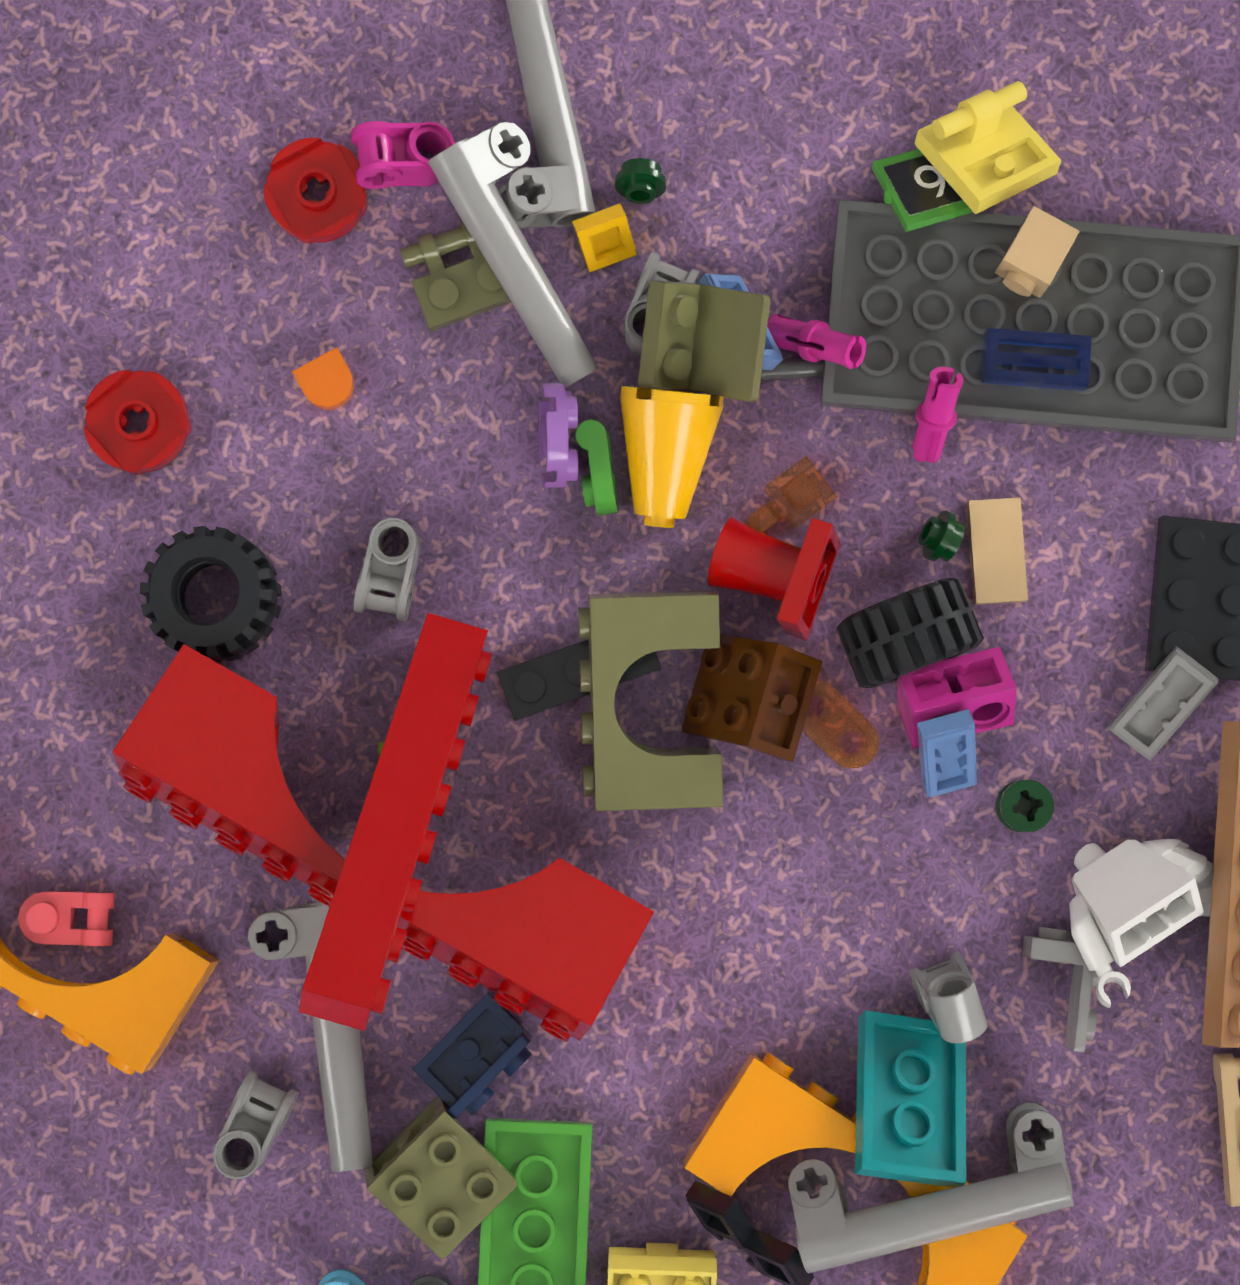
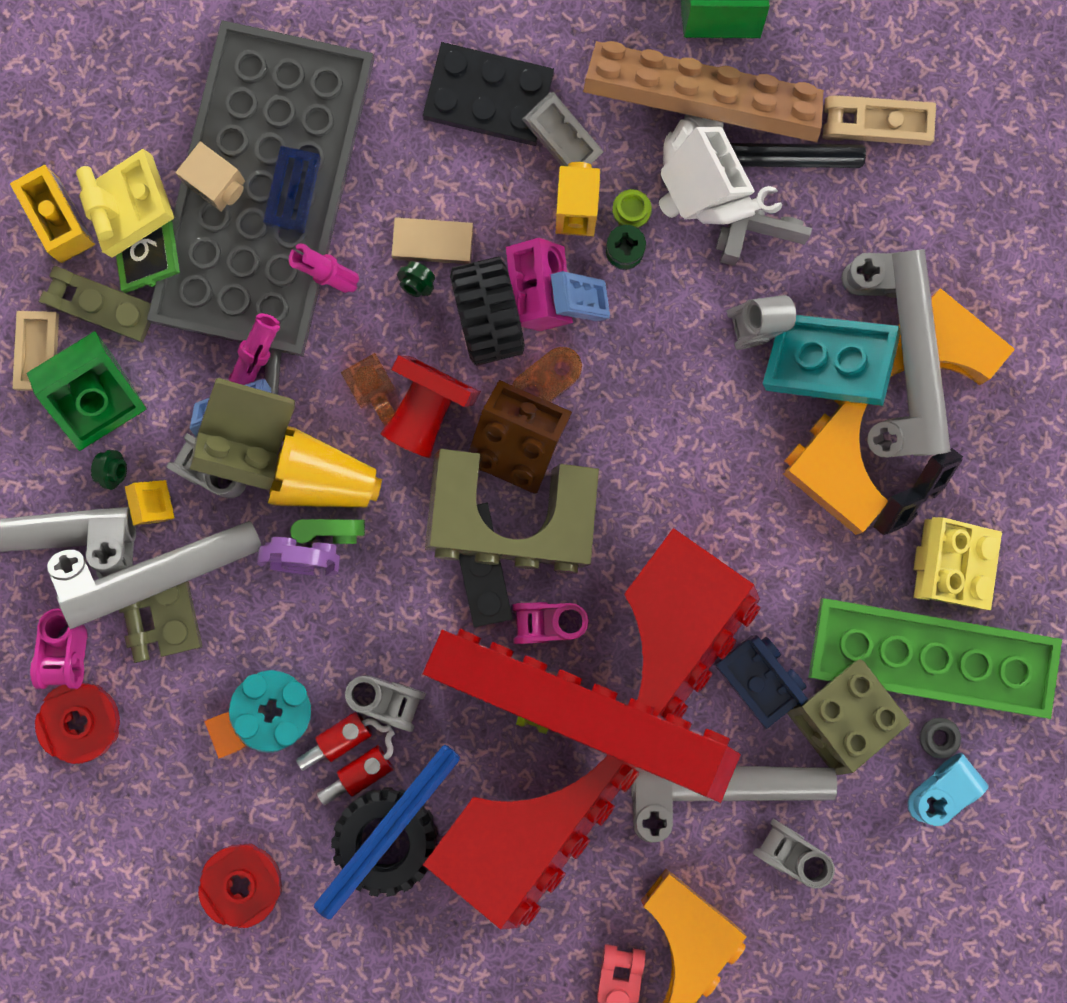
camera: 85 degrees left, 0 degrees up
(221, 594) = (386, 832): none -> blue axle
(297, 554) = (361, 771): none -> red piece
(380, 406) = (256, 692): none -> teal plate
(515, 764) = (545, 622): none -> dark pink piece
(736, 136) = (85, 391): none -> green slope
(781, 67) = (34, 343): none -> tan tile
(851, 136) = (98, 304): none -> olive plate
(959, 60) = (52, 214): none -> yellow brick
(1077, 732) = (577, 199): none -> yellow brick
(1078, 808) = (632, 208): none -> lime plate
(1184, 1024) = (800, 155): none -> black axle

